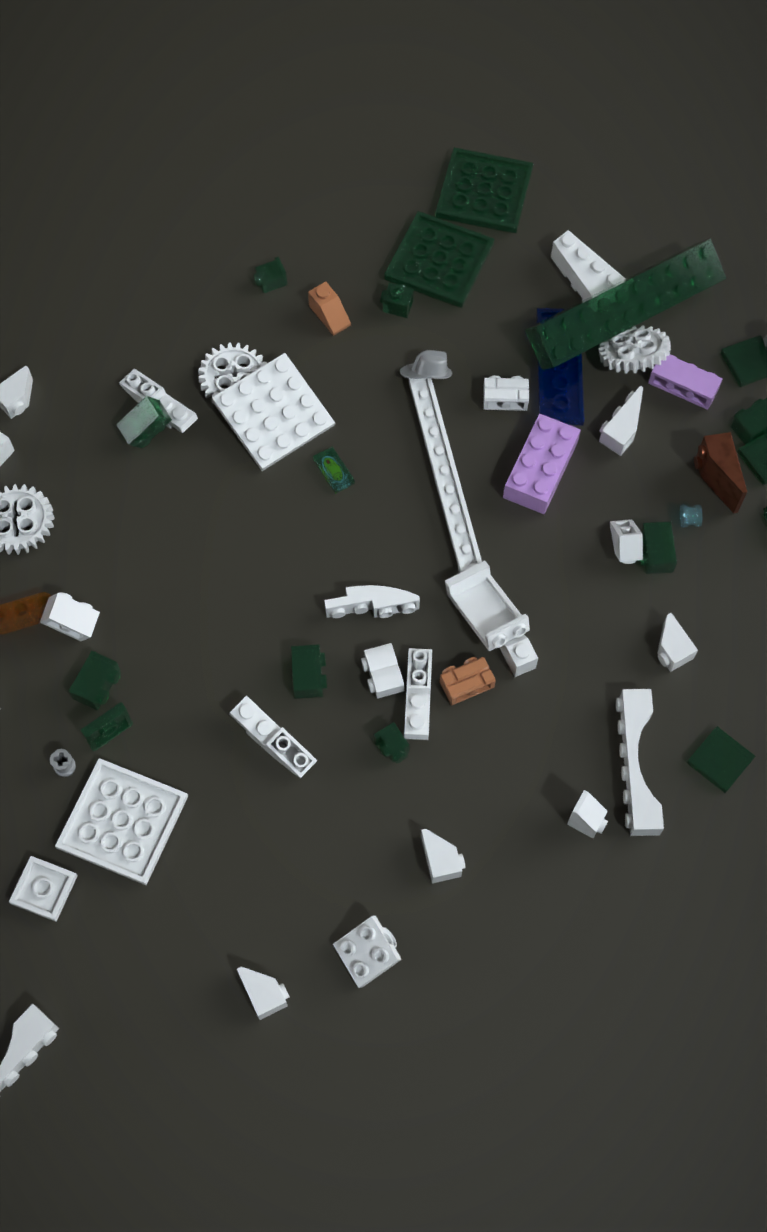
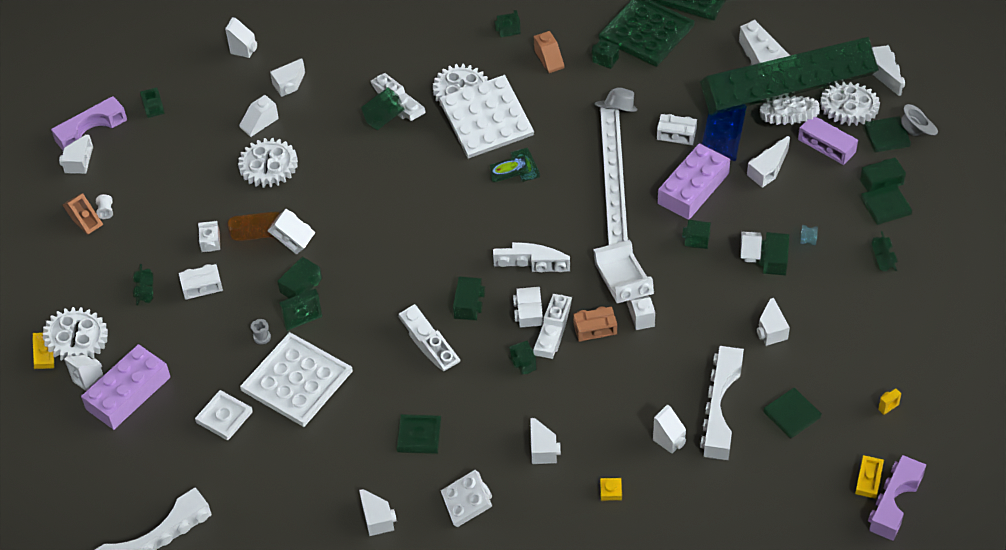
camera: 15 degrees right, 15 degrees down
(289, 868) = (419, 434): none -> clear green tile
(316, 480) = (509, 168): none -> tile
(533, 902) = (611, 489): none -> yellow plate
(561, 537) = (697, 234): none -> clear green brick
(709, 337) = (850, 103): none -> white gear
(721, 469) = (840, 202): copper slope -> none
(737, 274) = (888, 70): none -> white slope

